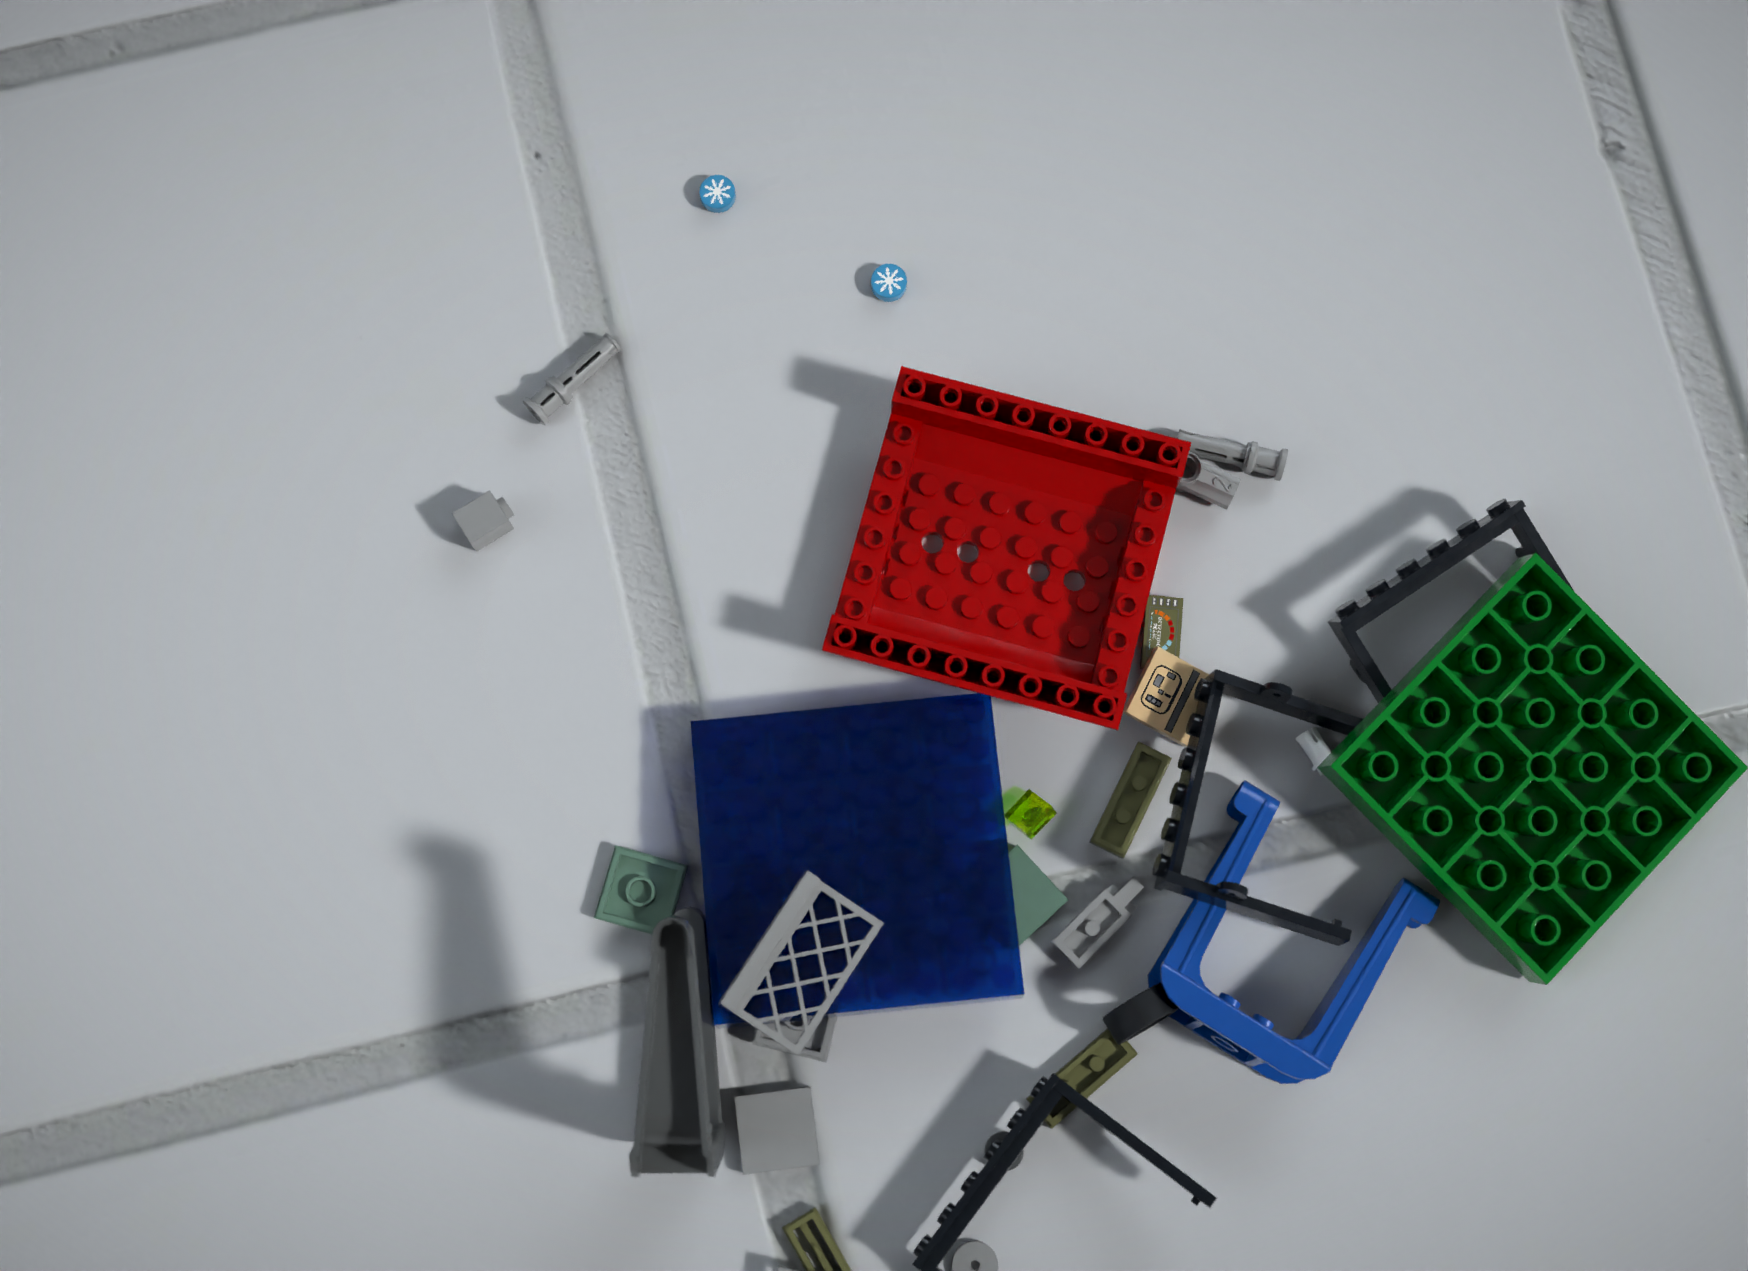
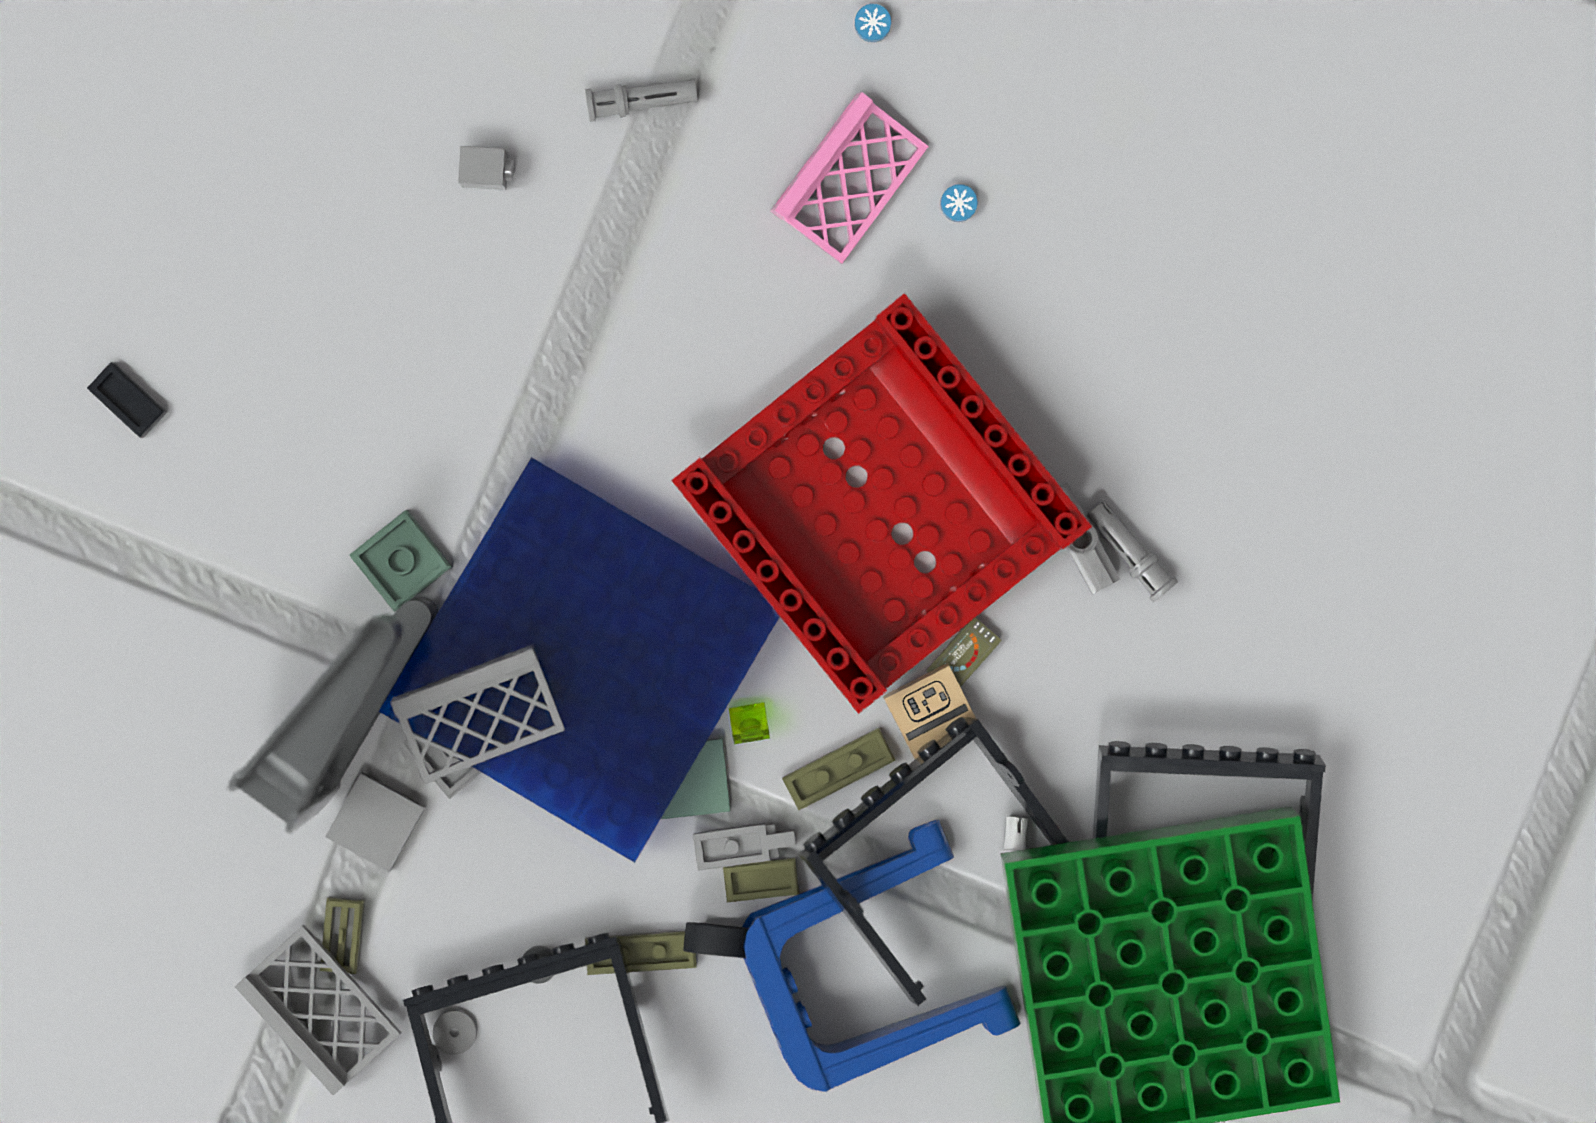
camera: 45 degrees right, 10 degrees up
(313, 924) = (127, 400): none -> black tile
(757, 314) = (825, 157): none -> bright pink fence
(1136, 939) = (761, 880): none -> olive tile

